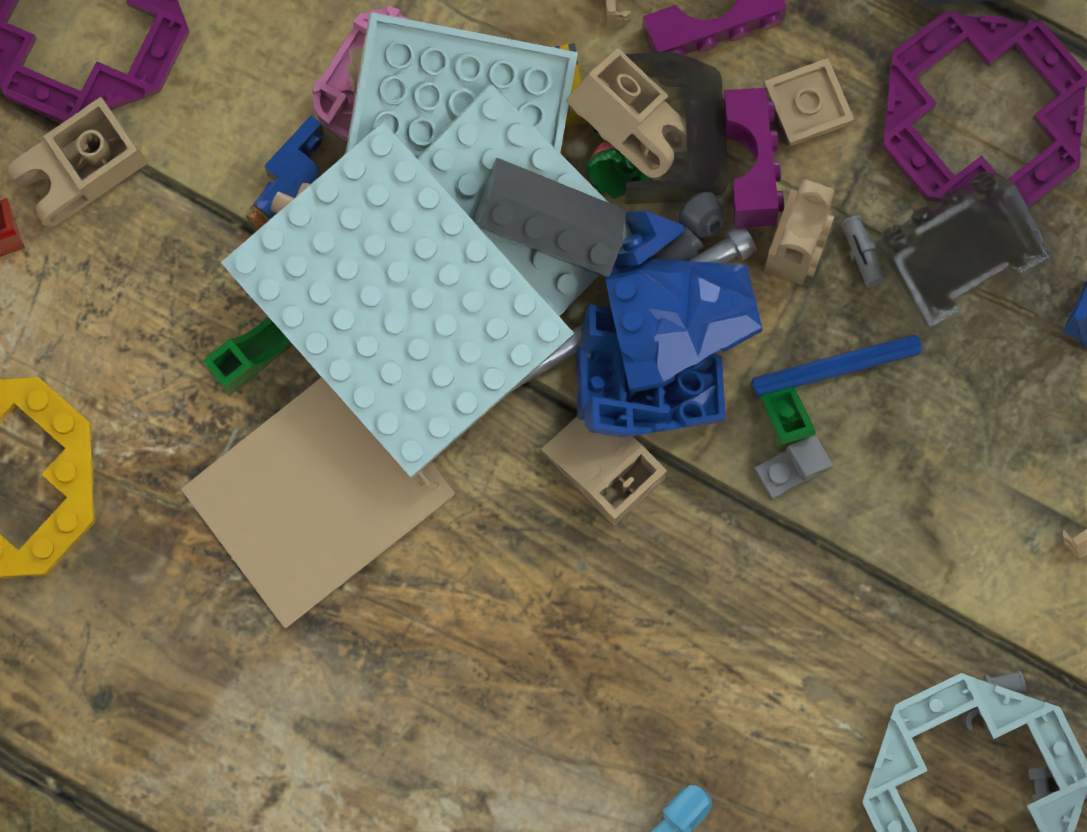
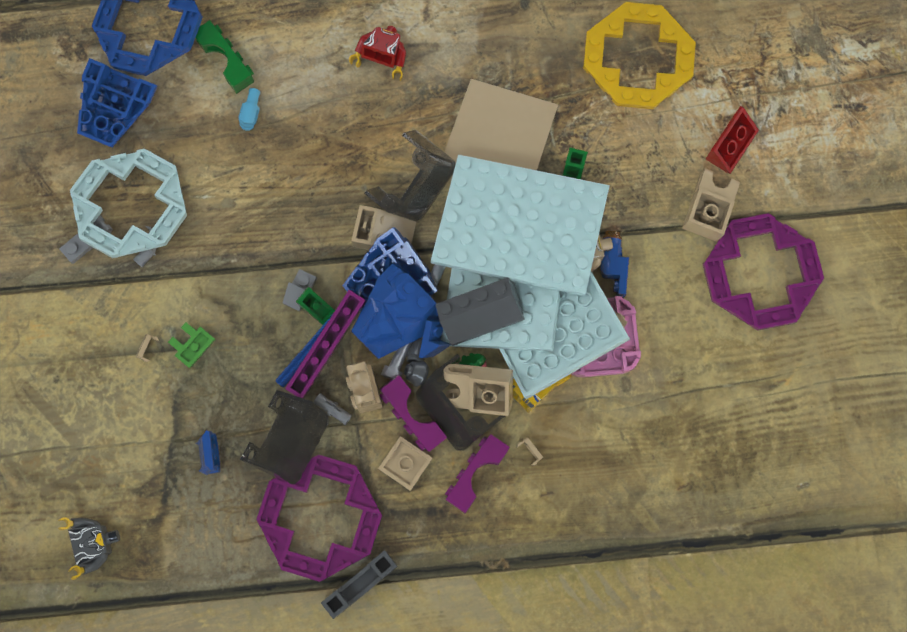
camera: 145 degrees right, 0 degrees up
(392, 770) = (381, 47): none -> red torso
(462, 489) = (434, 174): none -> clear smoke windscreen
(811, 341) = (325, 344): none -> magenta brick
(1013, 484) = (194, 347): none -> bright green plate

